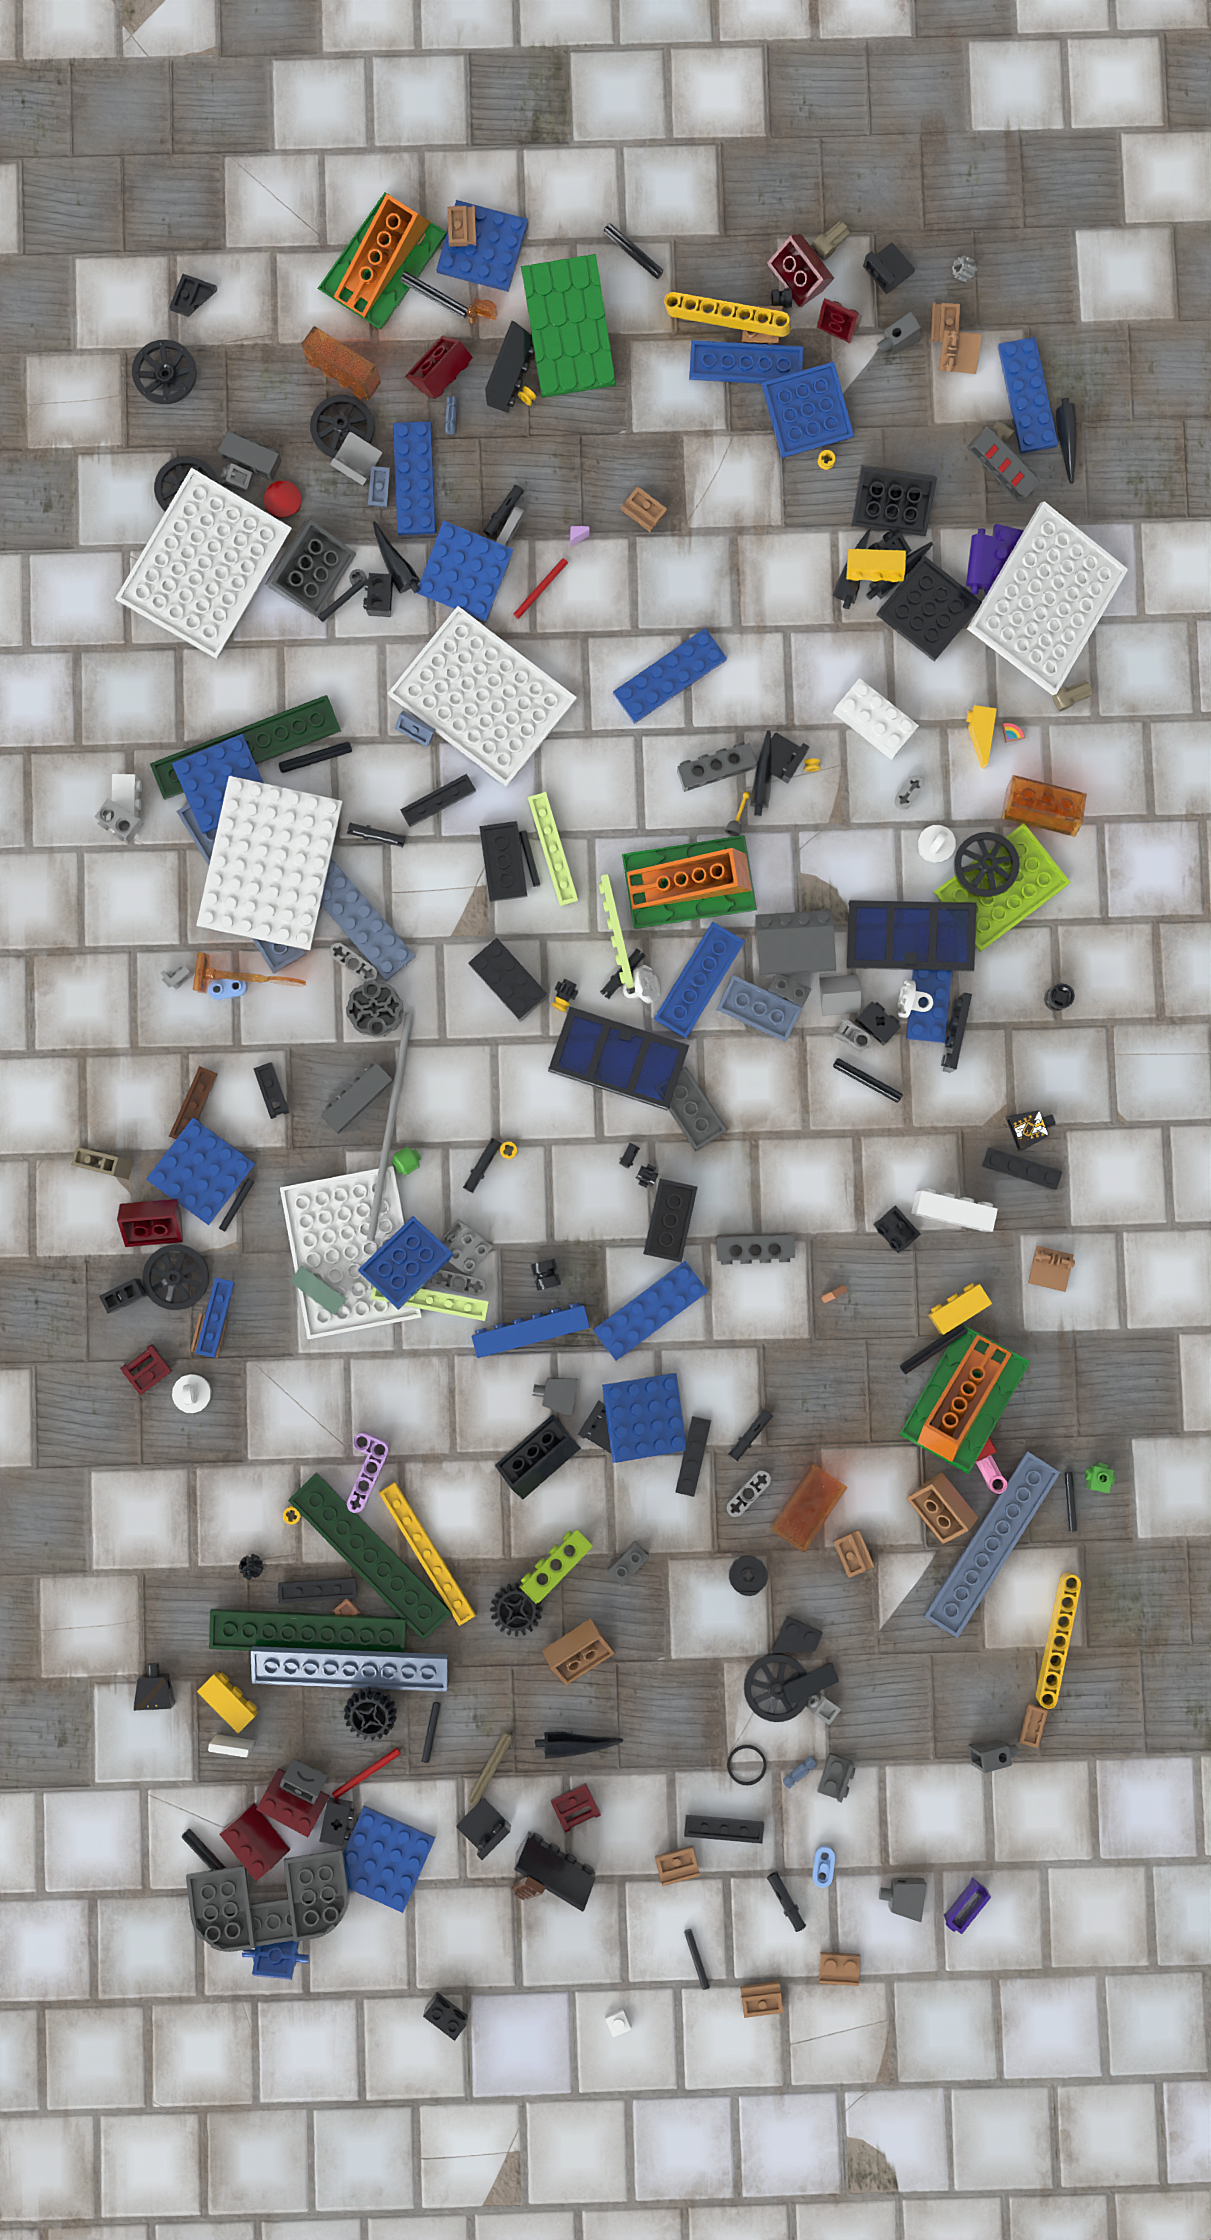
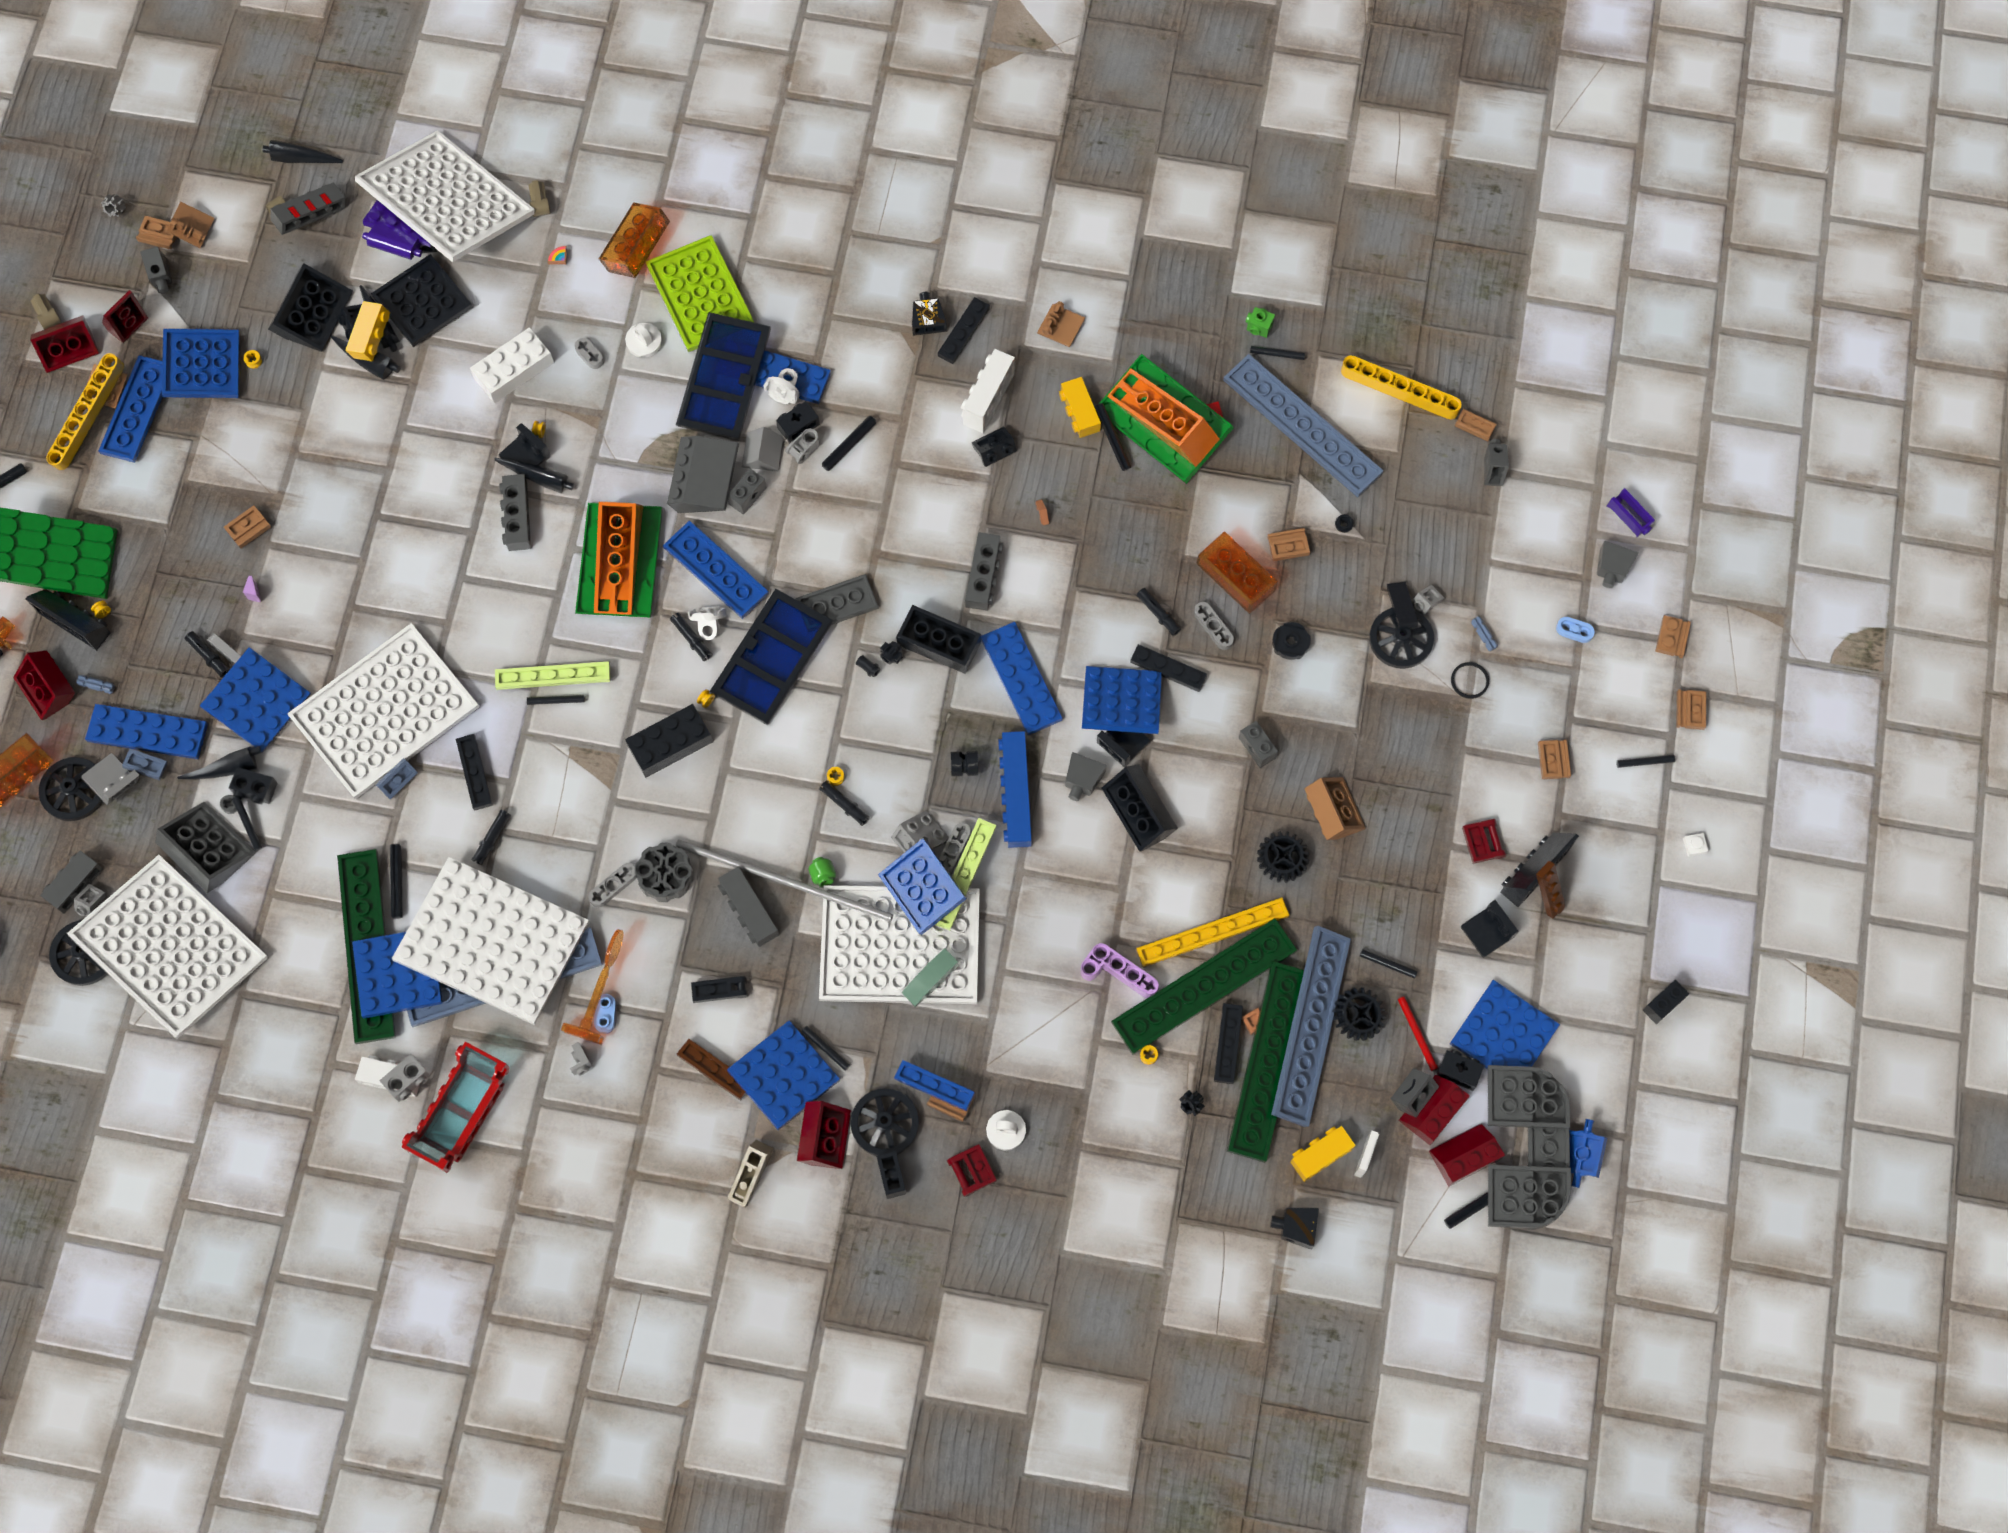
camera: 75 degrees left, 15 degrees down
(100, 875) = (458, 1109): none -> windscreen
(282, 499) = (125, 860): red dish -> none
(363, 924) = (578, 866): sand blue plate -> none
(490, 1768) = (1432, 913): dark tan axle -> none
(503, 861) = (551, 723): black plate -> none
(540, 588) = (293, 636): red bar -> none
(566, 990) = (692, 689): black gear -> none
(568, 1744) = (1422, 838): black piece -> none
(580, 1548) = (1234, 785): lime brick -> none
(617, 939) = (656, 630): yellowish green plate -> none
(669, 675) = (415, 538): blue plate -> none
(724, 1829) = (1526, 710): black plate -> none
(734, 827) = (578, 509): hinge -> none
(759, 1008) = (756, 522): sand blue plate -> none
(781, 298) = (85, 364): black wheel -> none
(788, 1905) = (1610, 666): black pin -> none
(796, 1637) = (1357, 611): black wing -> none
(836, 1777) = (1494, 601): dark grey bracket -> none
(888, 267) = (89, 269): black bracket -> none
(893, 1612) = (1344, 518): none -> black plate
(942, 1508) = (1261, 459): medium nougat slope -> none
(957, 1025) = (824, 354): black plate -> none
(981, 728) = (549, 280): yellow slope -> none
(985, 869) = (675, 301): black wheel -> none
(991, 1472) = (1237, 411): bright pink piece -> none
(1027, 395) = (249, 179): blue plate -> none
(1059, 997) = (813, 265): black wheel -> none

